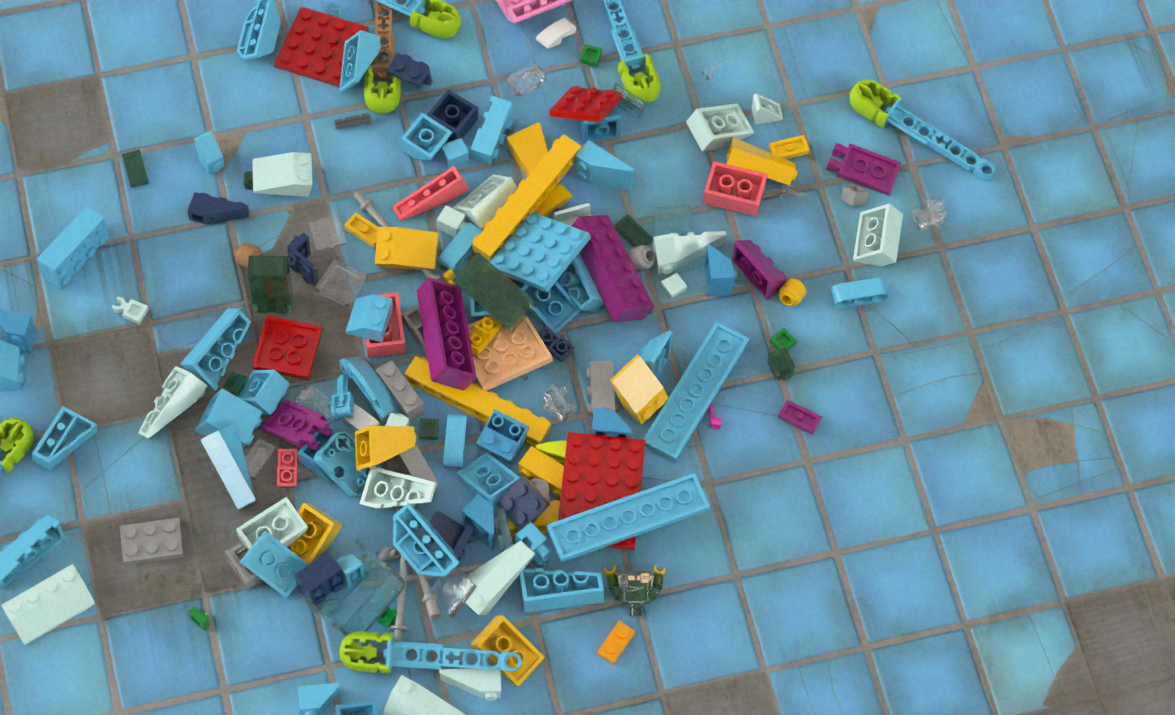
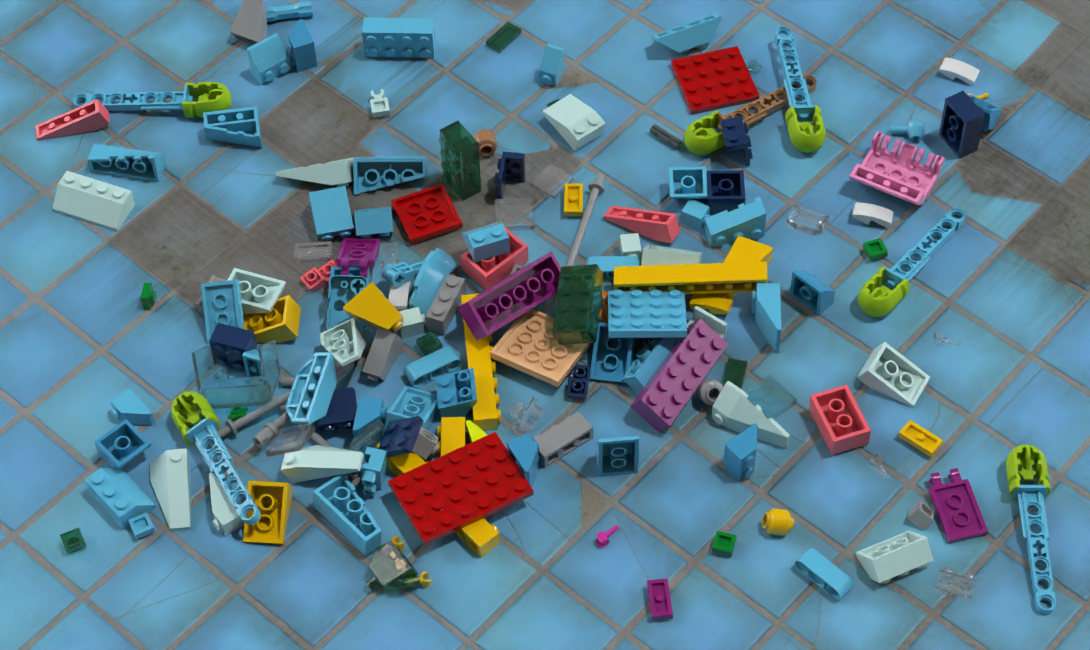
camera: 60 degrees right, 10 degrees down
(151, 541) = (194, 231): light grey plate -> none
(212, 210) = (506, 100): dark blue slope -> none
(229, 460) = (286, 233): medium azure wedge -> none
(235, 383) = (367, 200): clear green plate -> none
(357, 57) = (723, 99): medium azure slope -> none
(406, 249) = (574, 230): yellow slope -> none
(483, 334) = (536, 326): yellow slope -> none
(585, 104) = (817, 266): red plate -> none
(616, 642) = (334, 587): light orange plate -> none
(628, 517) = (444, 516): medium azure plate -> none
(629, 102) = (852, 297): clear light blue slope -> none
(639, 390) = (575, 456): yellow slope -> none
(674, 285) = (709, 434): light aqua tile -> none
(695, 391) = (620, 507): medium azure plate -> none
(755, 159) = (883, 421): yellow slope -> none
(758, 268) = (778, 479): magenta slope -> none
(765, 110) = (941, 398): light aqua slope -> none
(781, 364) = (699, 554): clear green brick -> none

